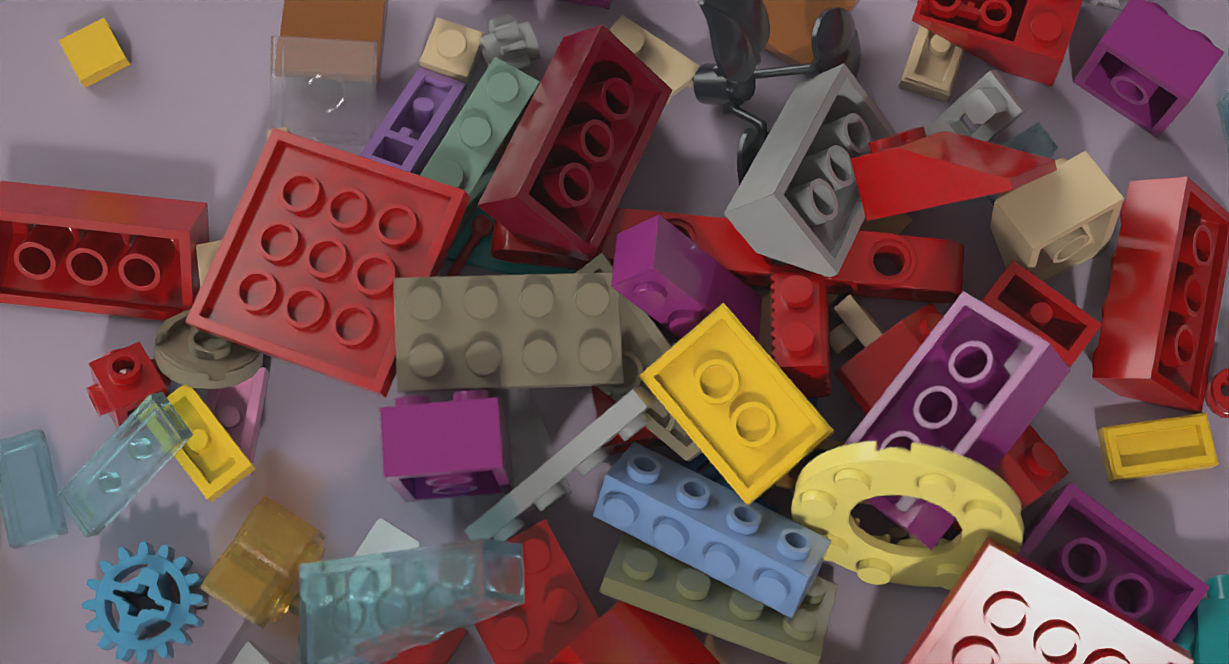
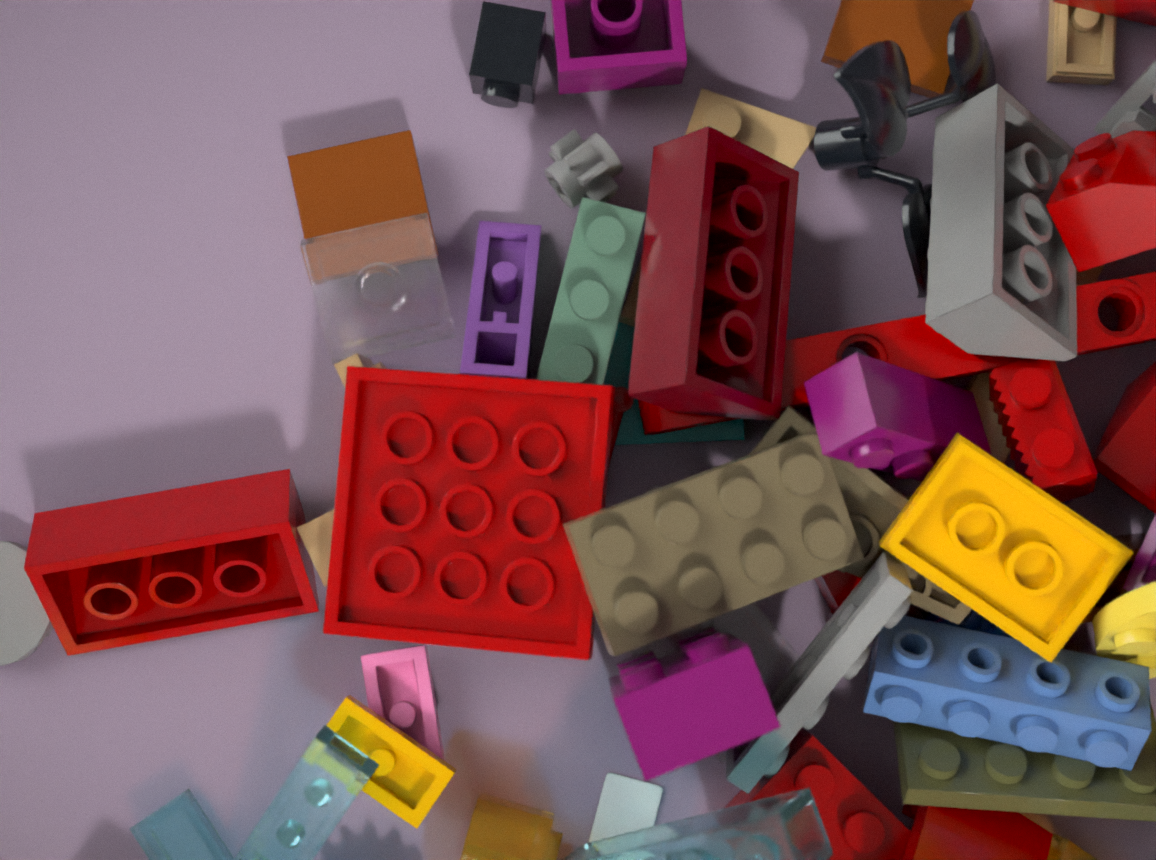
camera: 20 degrees left, 10 degrees up
(94, 52) = (84, 316): yellow tile -> none
(124, 381) = (274, 717): red brick -> none
(202, 358) = (345, 666): dark tan tile -> none
(452, 50) = (512, 190): tan plate -> none
(857, 326) = (1092, 392): tan tile -> none

